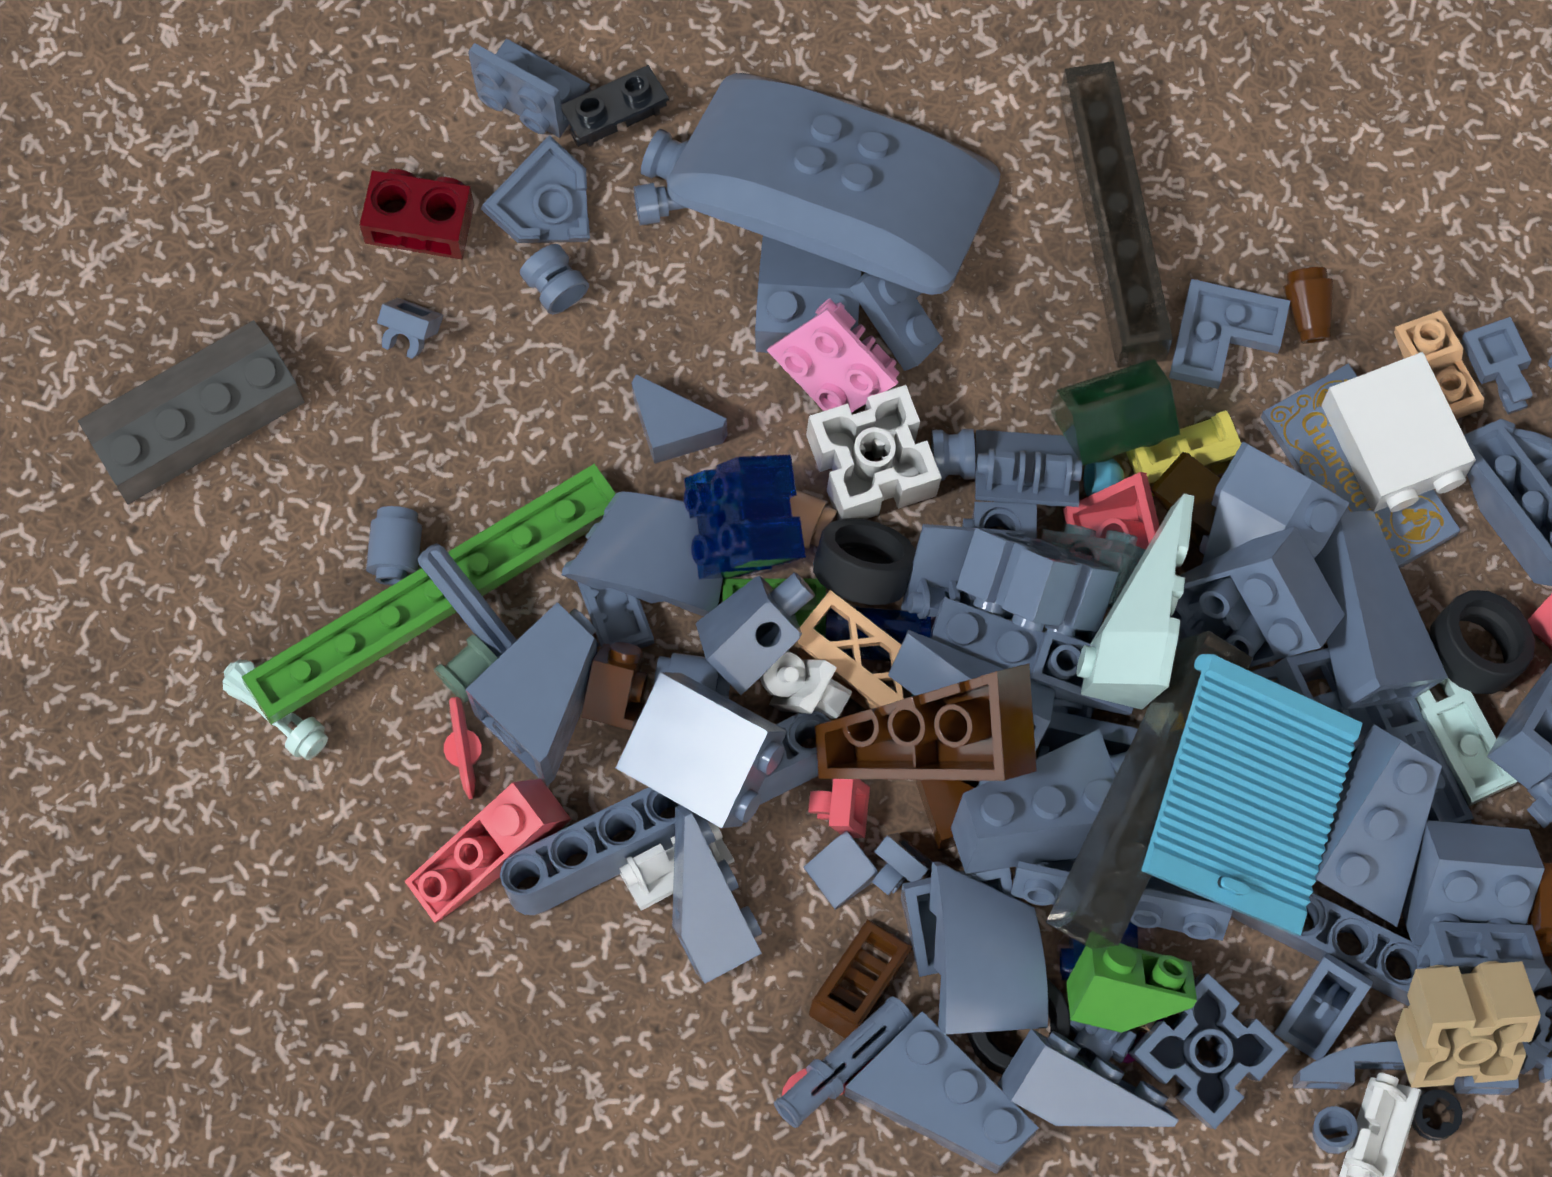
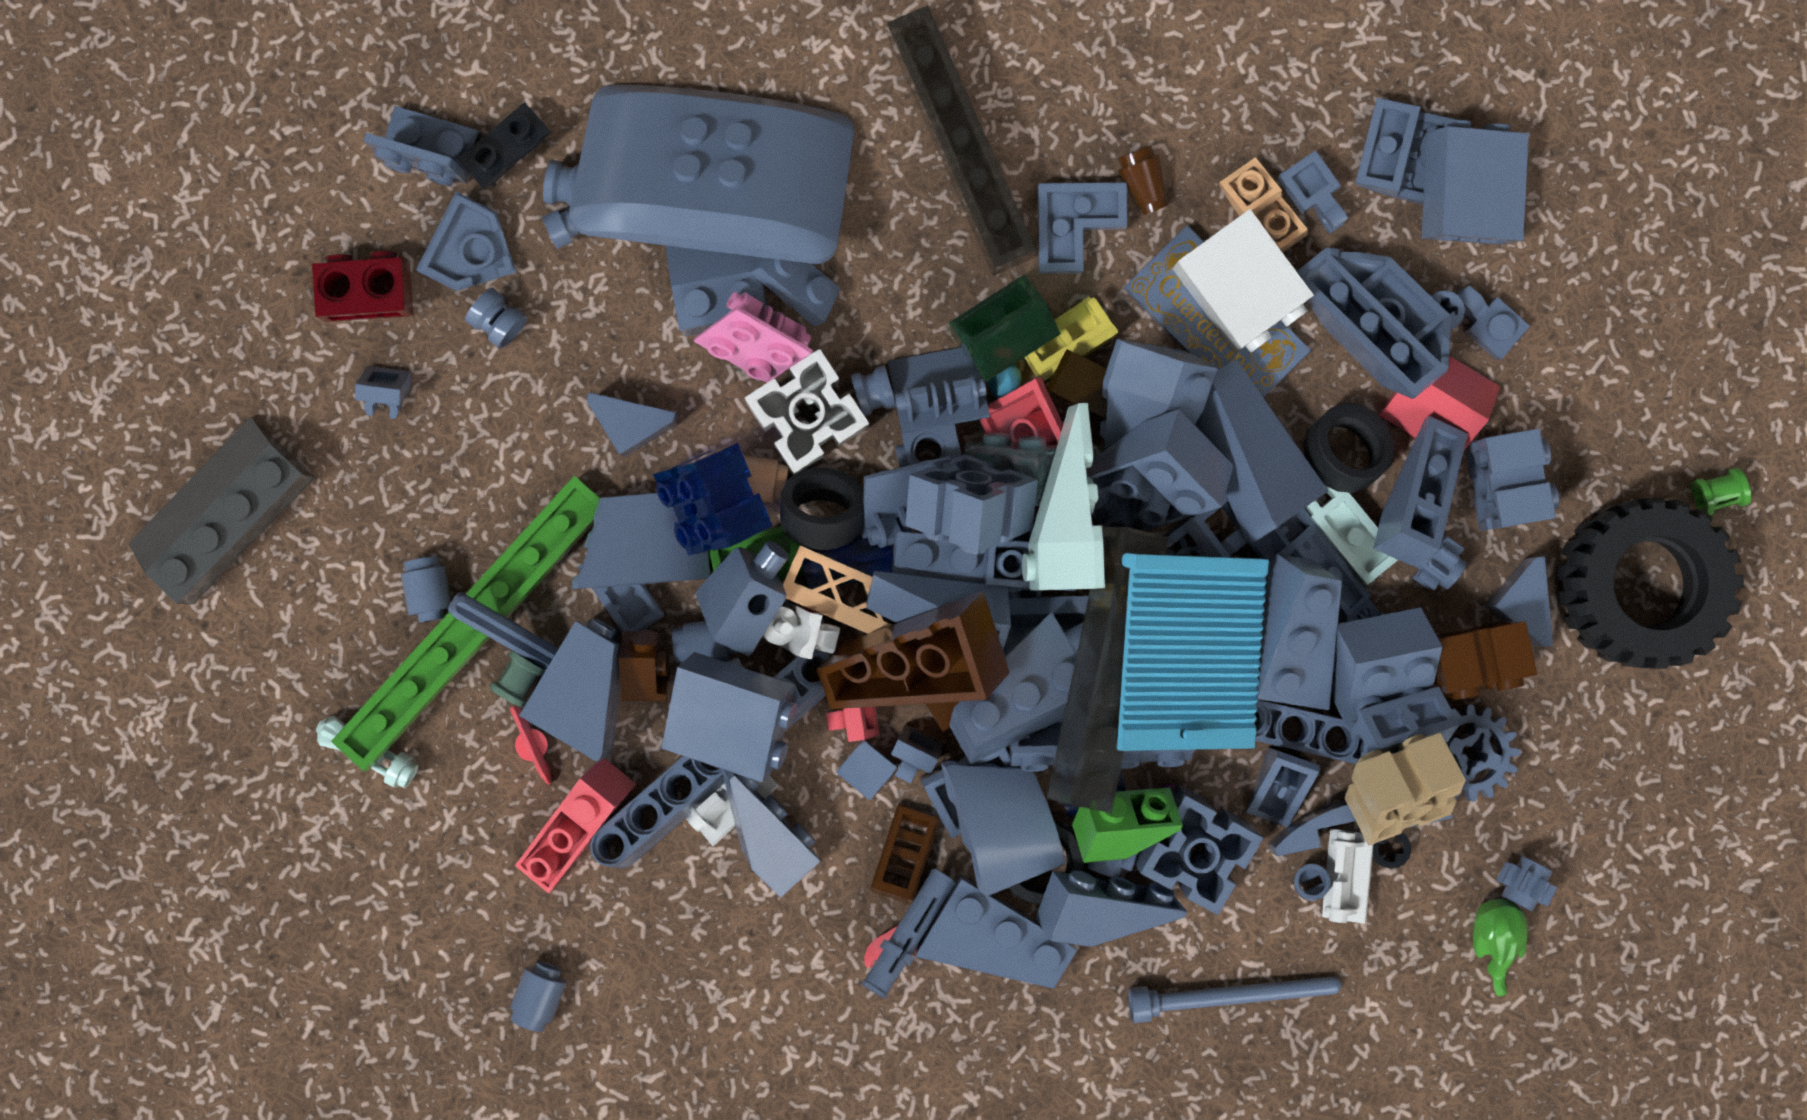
camera: 15 degrees left, 15 degrees up
(390, 1032) = (537, 996): none -> sand blue brick

